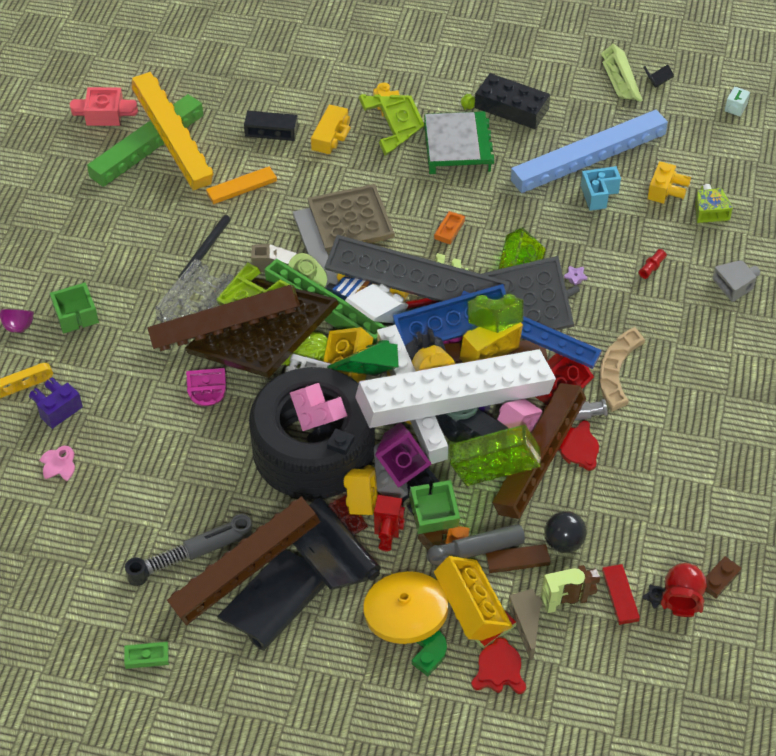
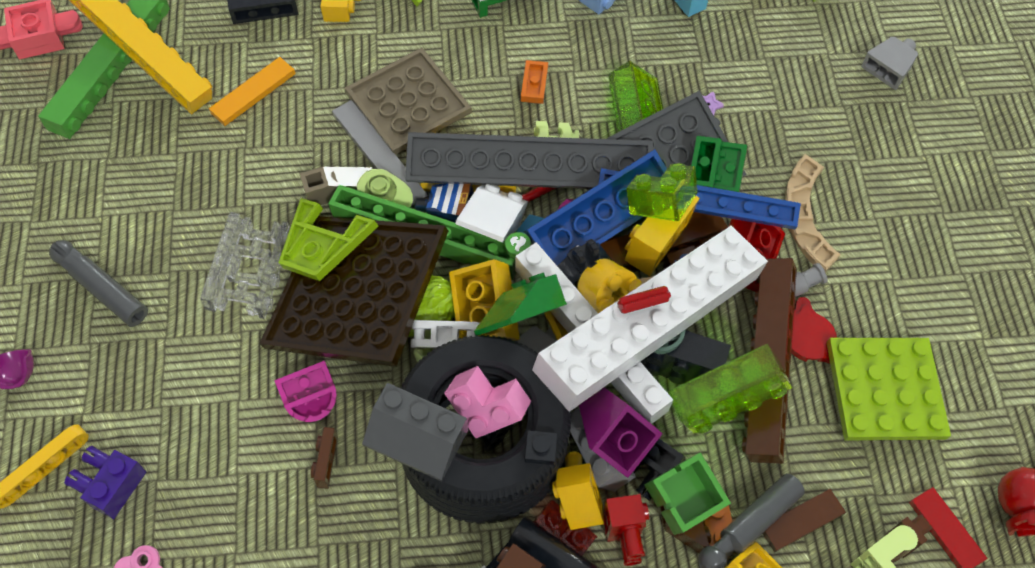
camera: 20 degrees left, 10 degrees up
(74, 307) = (86, 329): bright green piece -> none
(98, 291) = (98, 283): none -> dark grey piece
(205, 424) = (326, 447): none -> reddish brown plate
(209, 241) = (236, 185): black piece -> none
(223, 317) = (300, 291): reddish brown brick -> none
(262, 408) = (415, 431): none -> dark grey slope
(383, 322) = (516, 243): none -> bright green tile
(447, 371) = (643, 299): none -> red axle
(519, 413) = (734, 324): bright pink brick -> none
(551, 308) = (719, 163): none -> green brick
(565, 532) = (850, 466): black piece -> none
(620, 494) = (887, 389): none -> lime plate
(650, 596) = (993, 511): black plate -> none
(652, 263) = (790, 66): red pin -> none

